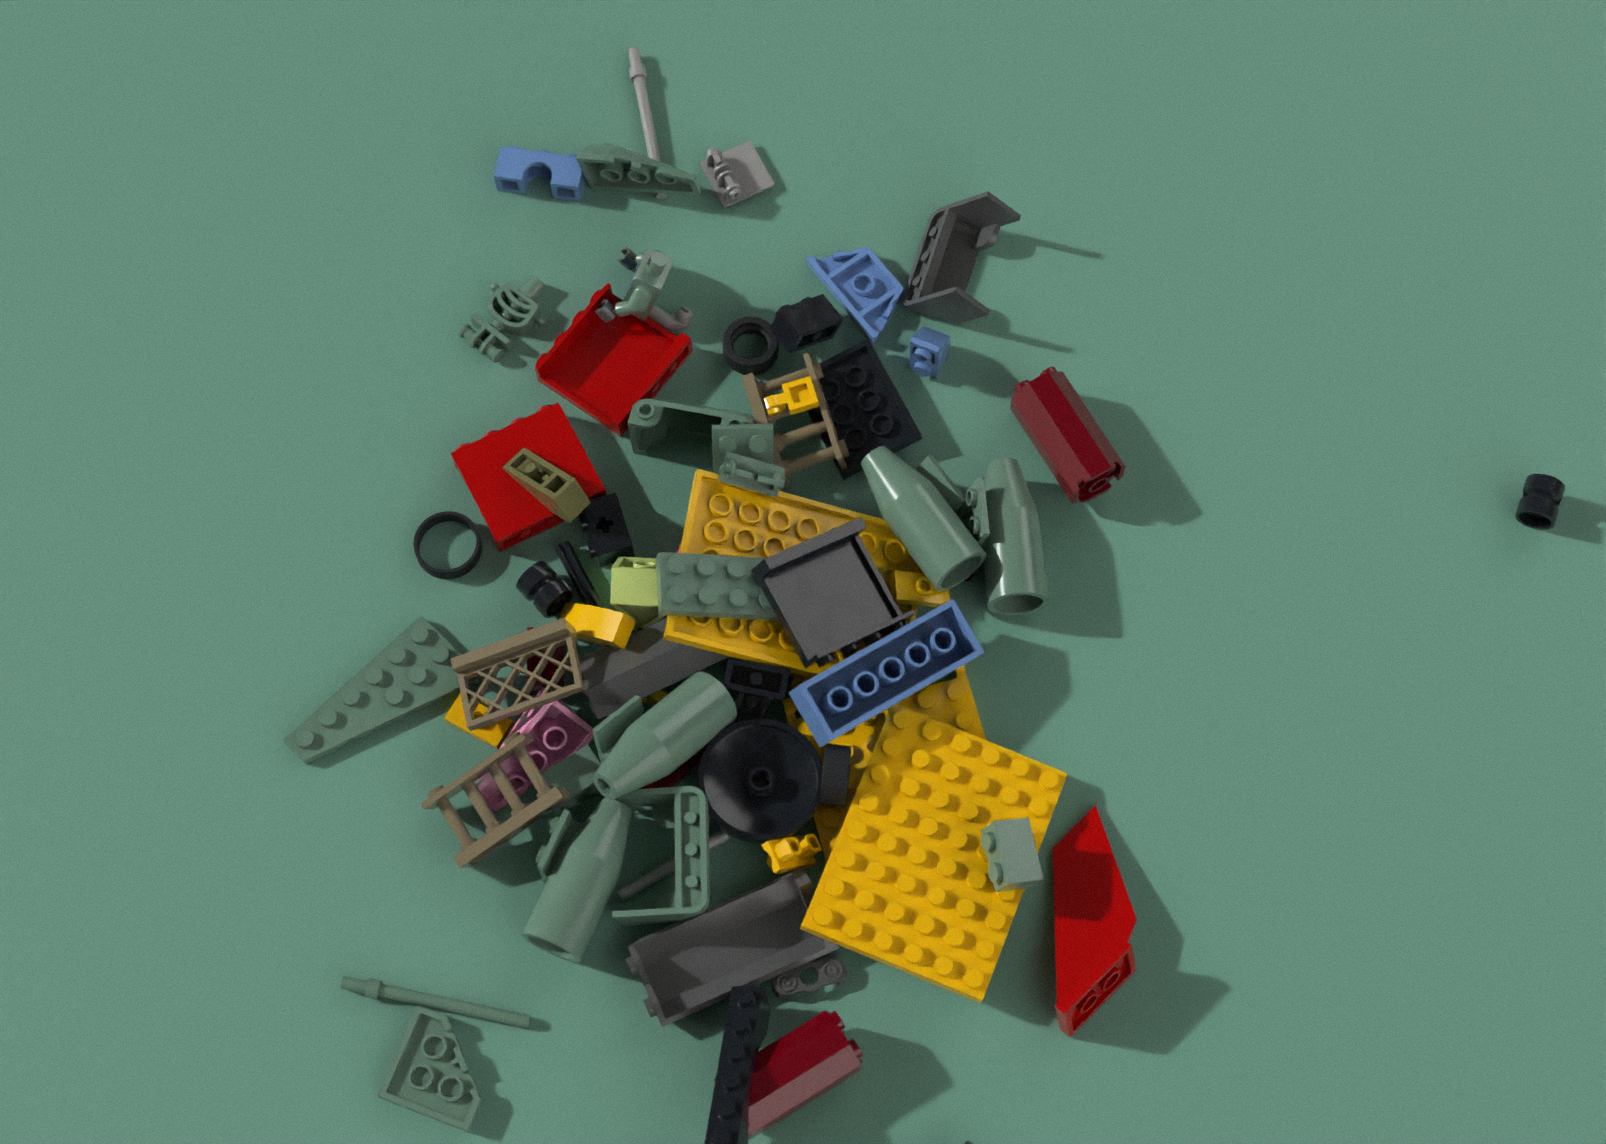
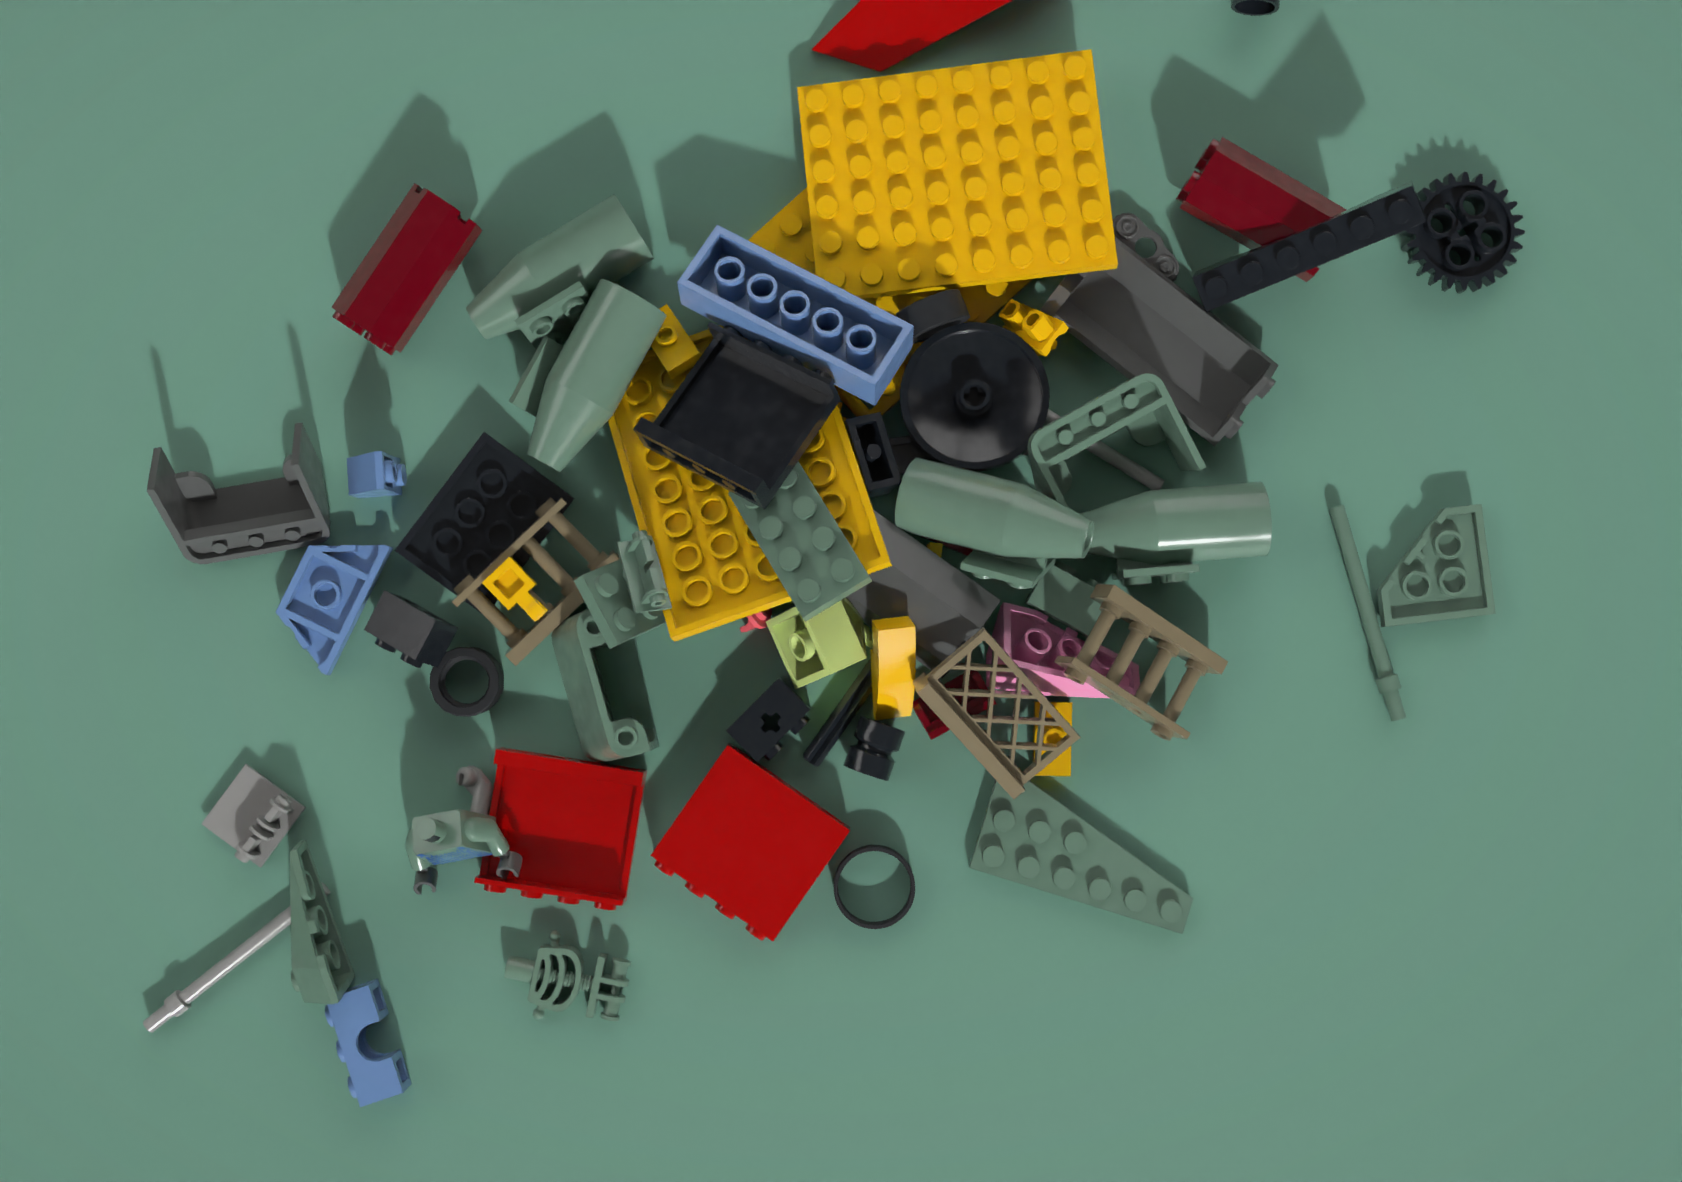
camera: 120 degrees left, 20 degrees up
(548, 484) = (760, 808): olive slope -> none
(1011, 854) = (930, 84): sand green brick -> none

